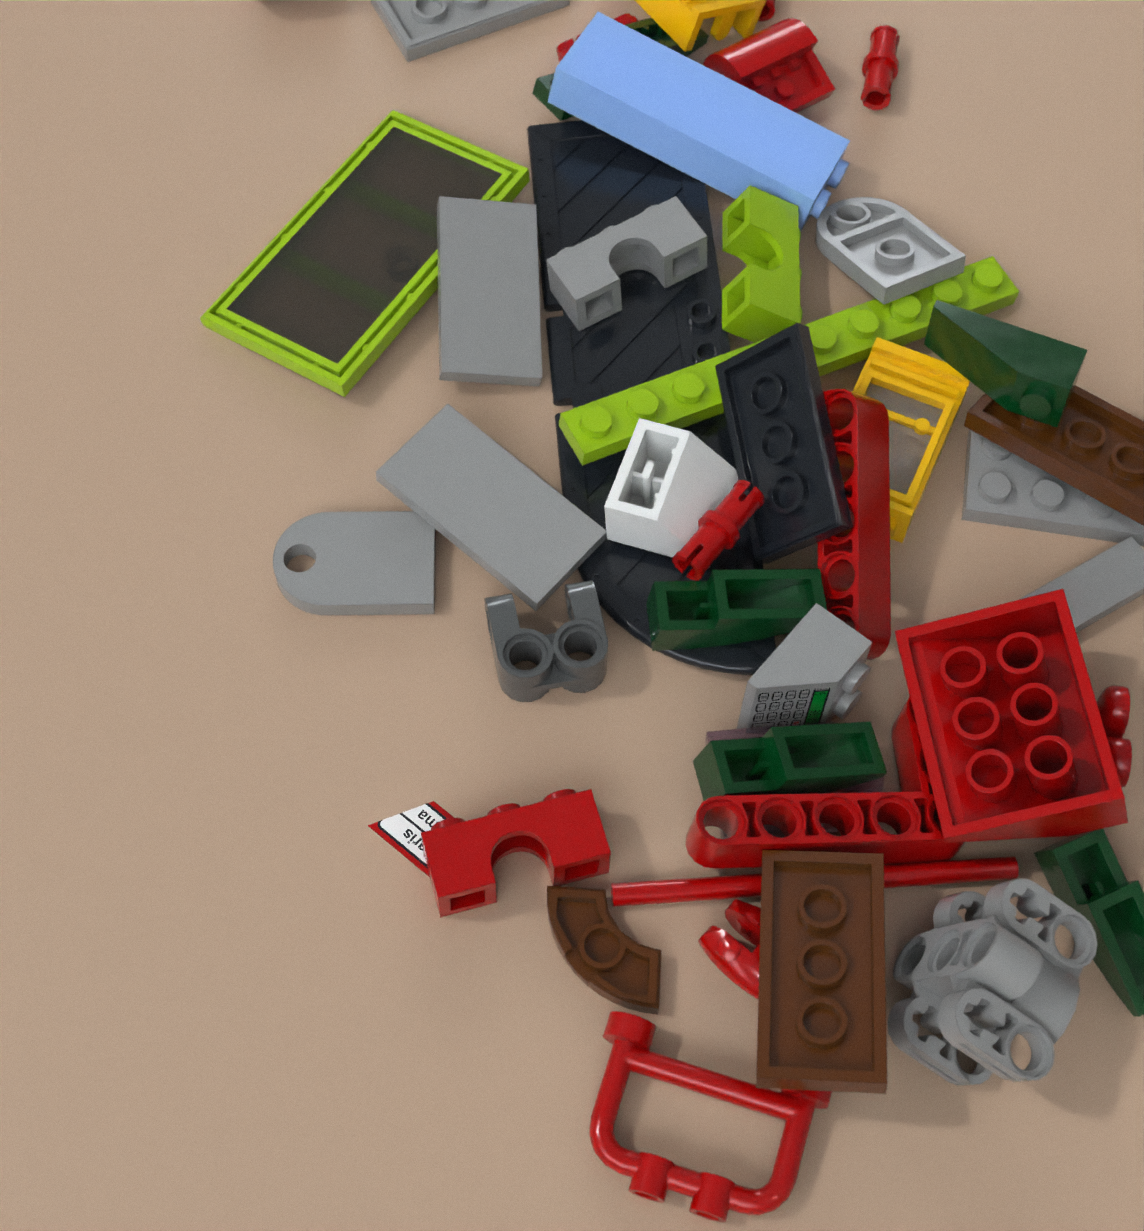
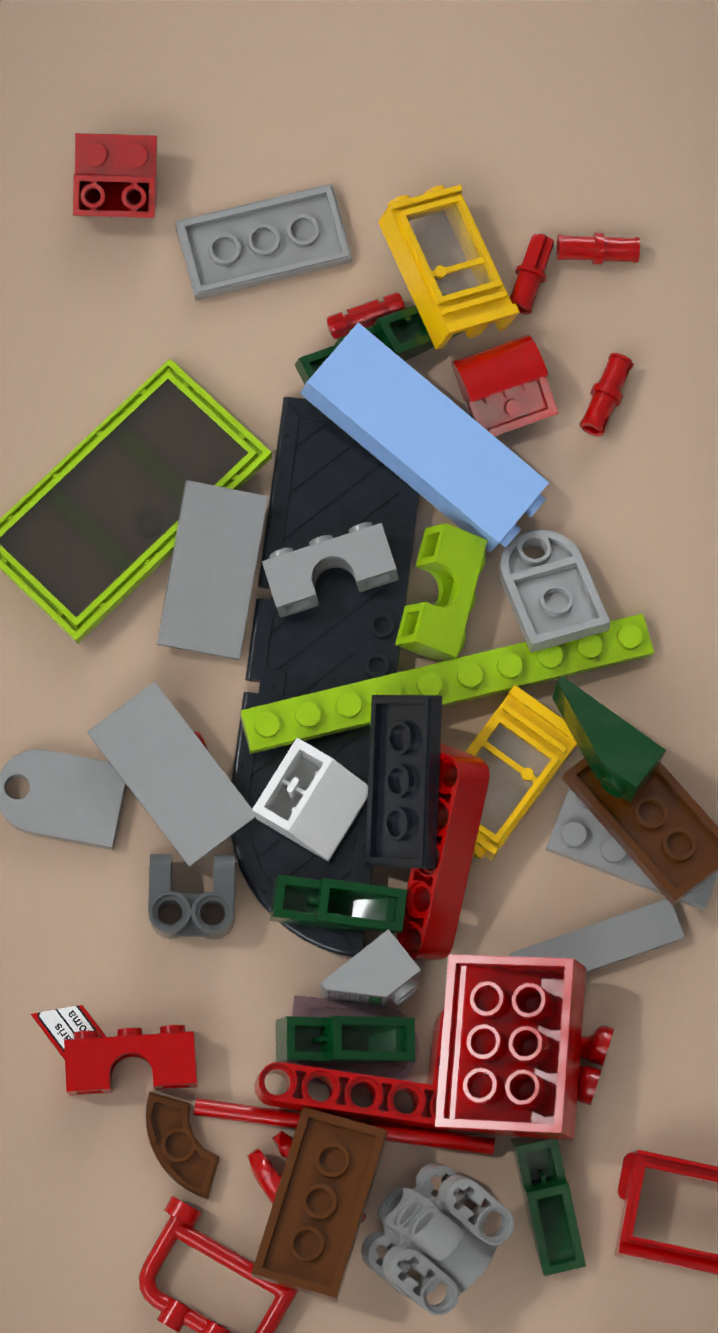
camera: 10 degrees right, 15 degrees up
(718, 530) = (337, 842): red pin -> none

